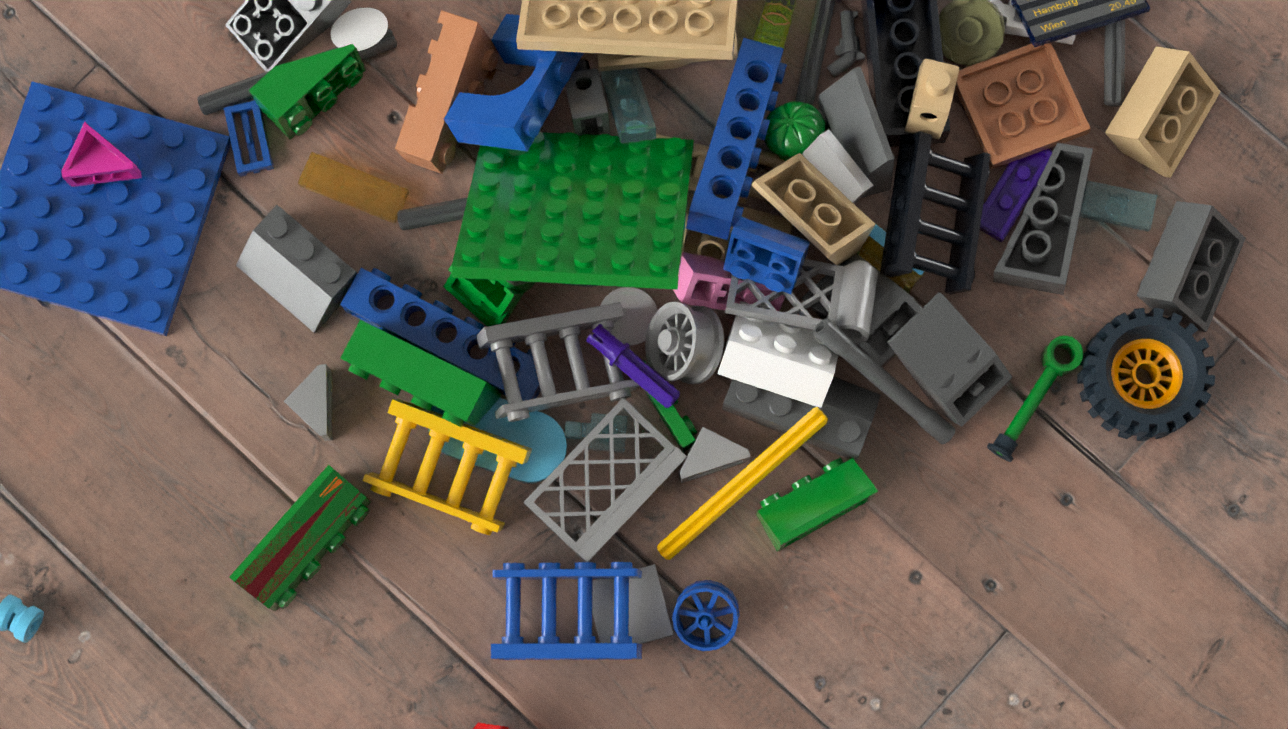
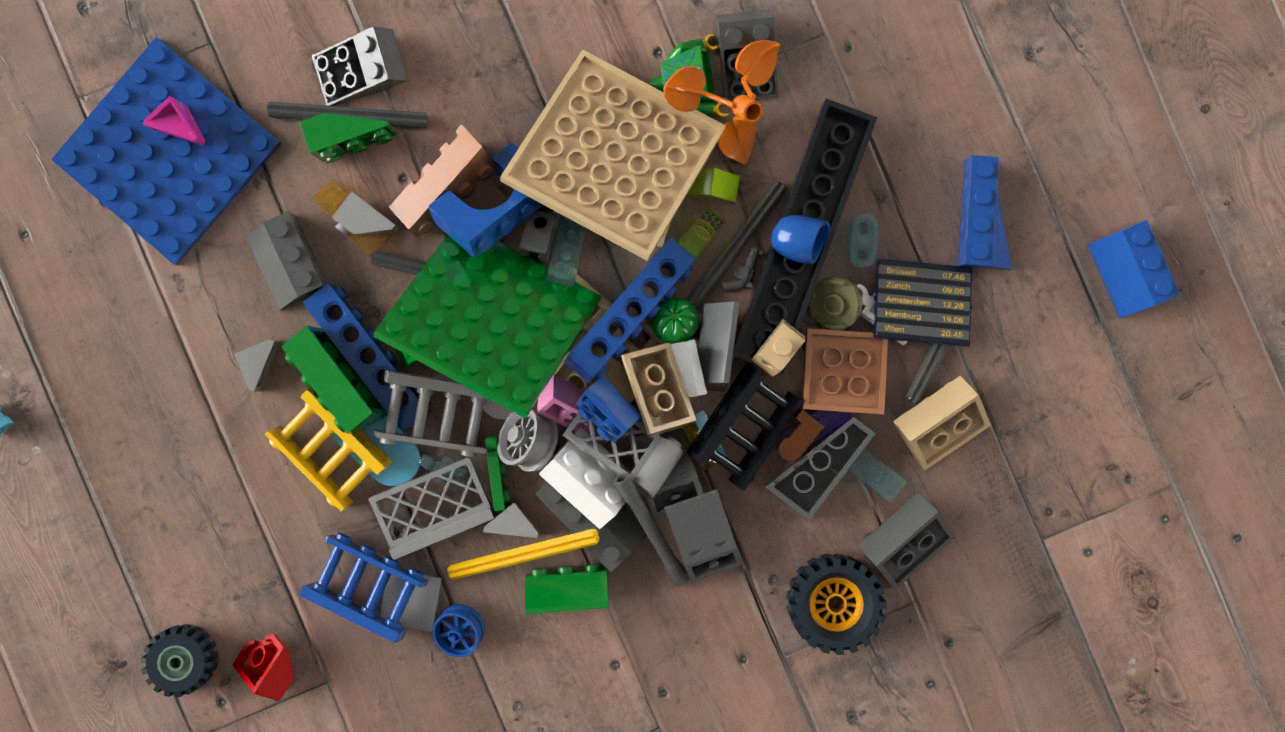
camera: 15 degrees right, 10 degrees up
(254, 165) = (278, 168): blue tile -> none
(301, 540) = (206, 455): green slope -> none
(359, 27) = (404, 103): white sticker -> none
(370, 176) = (361, 219): none -> light grey slope
(633, 366) = (484, 441): dark purple axle -> none
(1006, 443) = (717, 605): green piece -> none
(1007, 198) = (801, 437): none -> reddish brown leg

